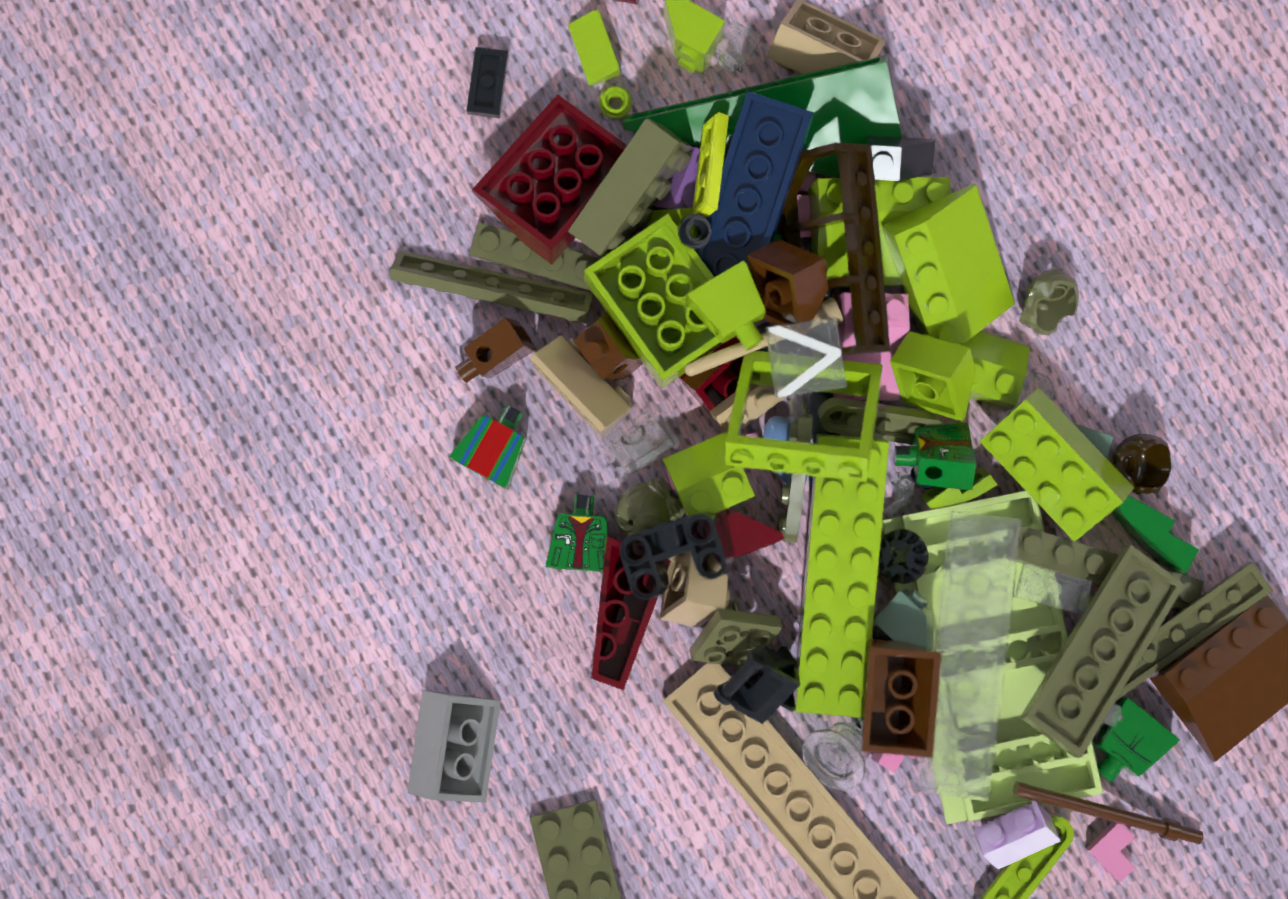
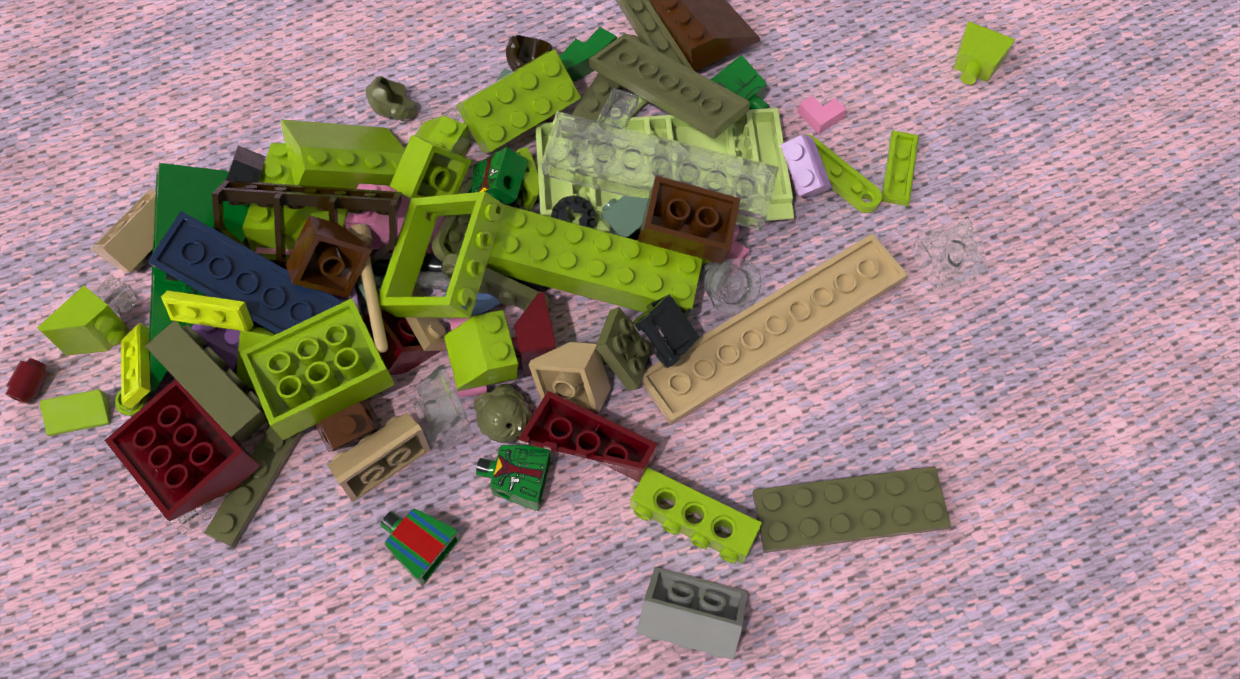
camera: 85 degrees left, 20 degrees down
(487, 82) = (75, 509): black plate -> none
(491, 286) = (264, 532): olive plate -> none
(508, 345) = (320, 514): reddish brown torso -> none
(545, 792) = (686, 500): none -> lime brick
(651, 98) = (135, 366): none -> neon yellow tile
(672, 540) = (529, 374): black beam -> none
(703, 228) = (260, 327): black plate -> none
(730, 306) = (333, 303): lime torso -> none
(805, 357) = (390, 244): clear tile -> none
(1166, 828) = (806, 78): reddish brown bar -> none

